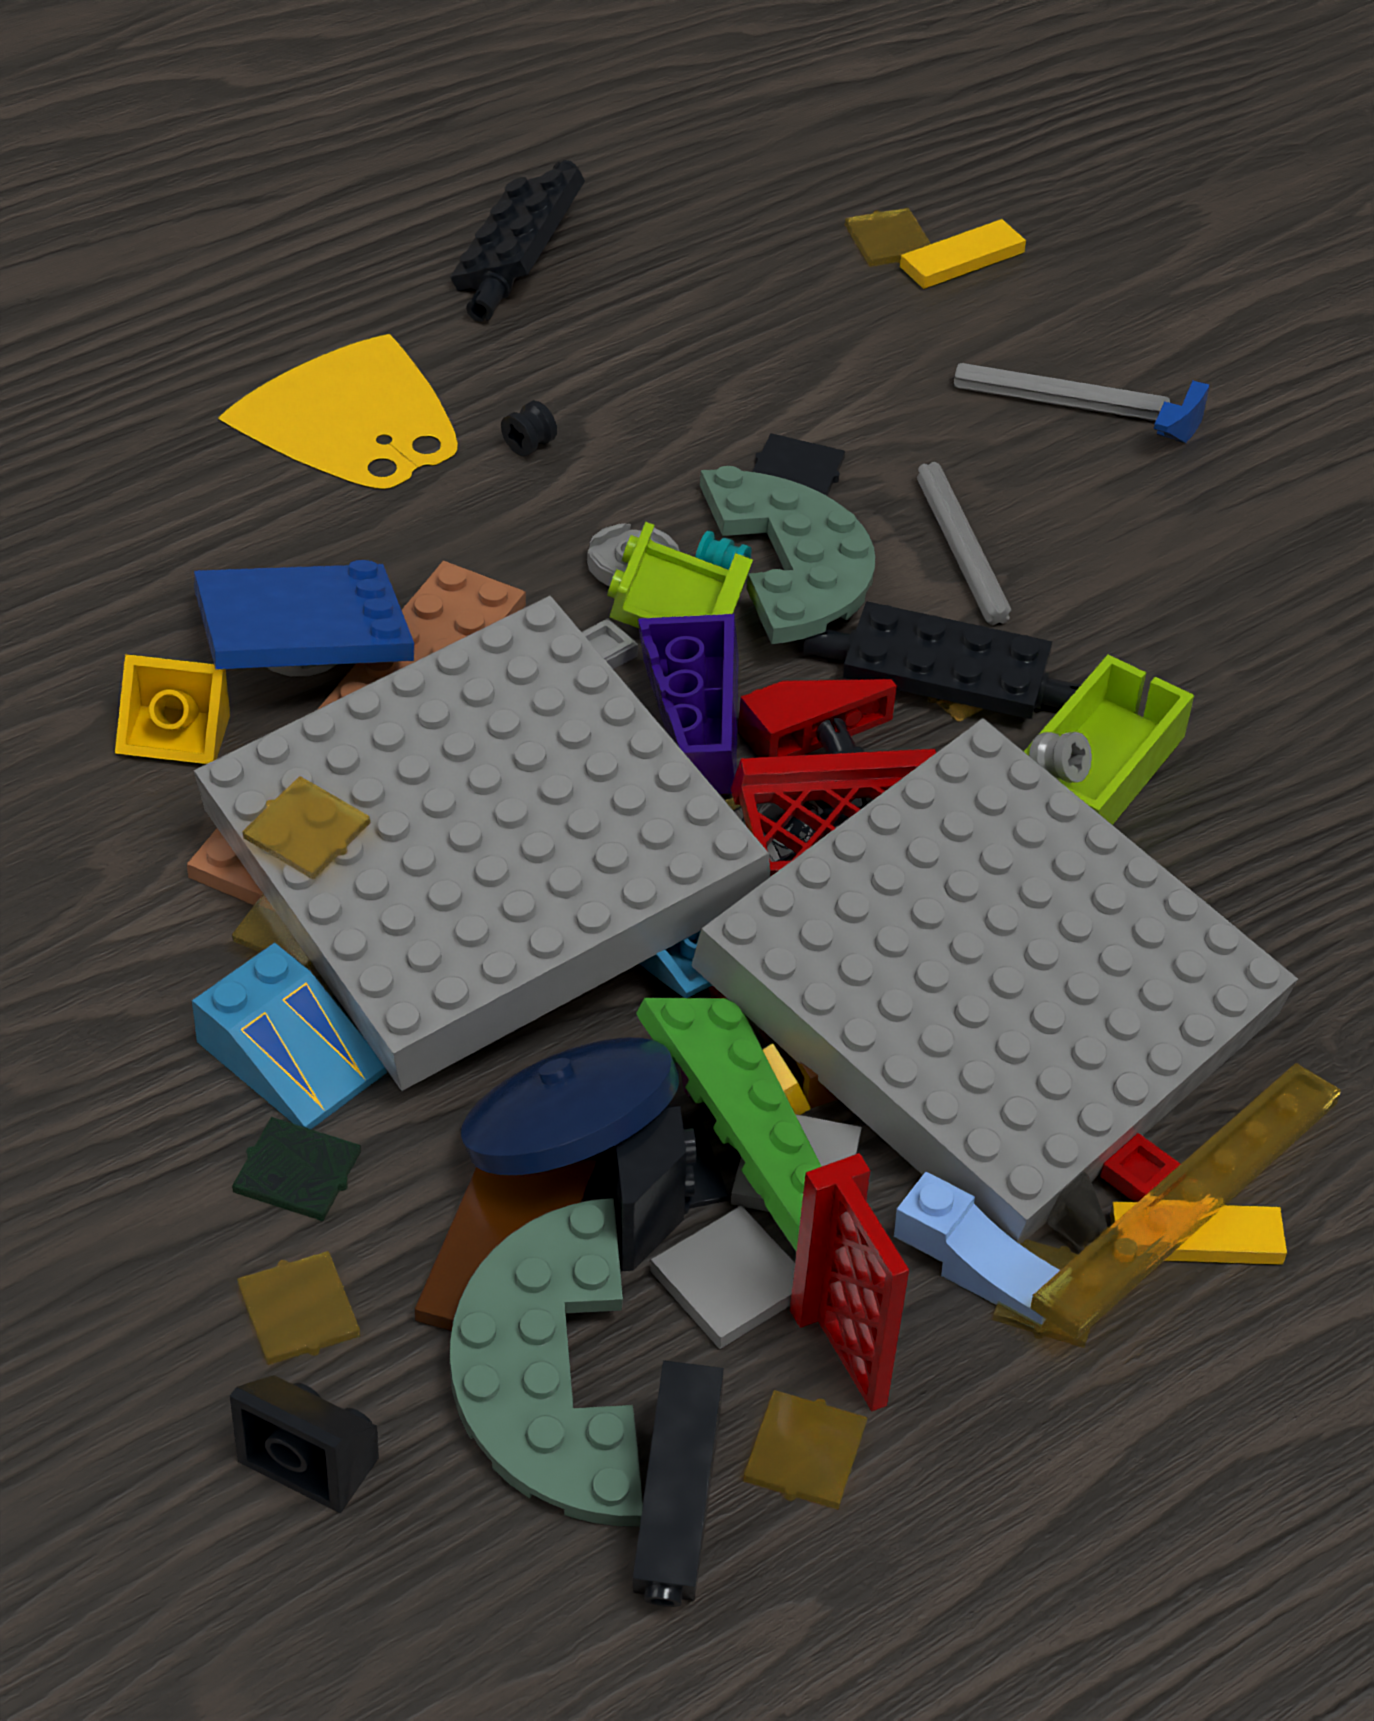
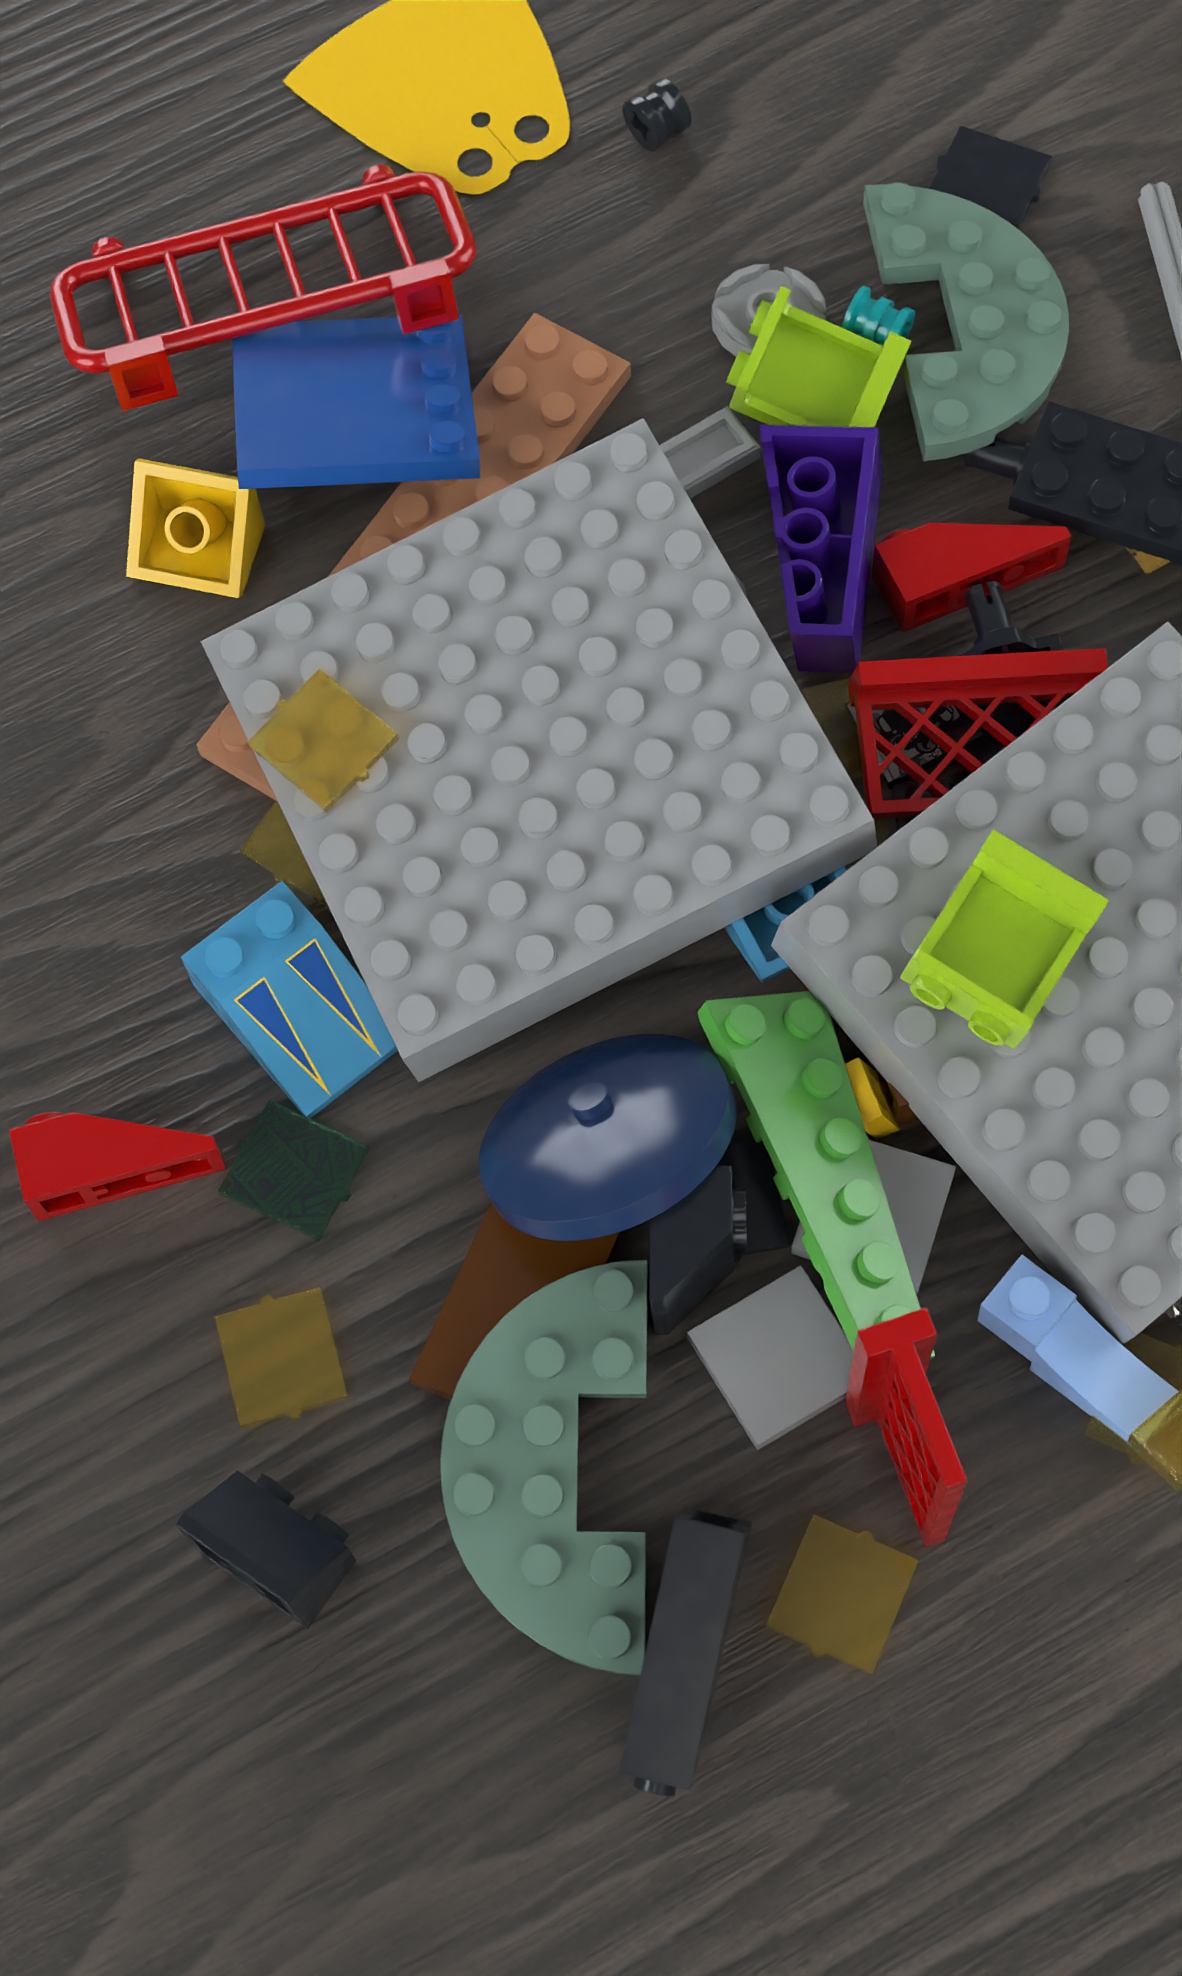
camera: 15 degrees right, 20 degrees up
(126, 596) = (141, 367): none -> red bar
(130, 1163) = (94, 1160): none -> red slope
(884, 926) = (1003, 941): none -> lime panel

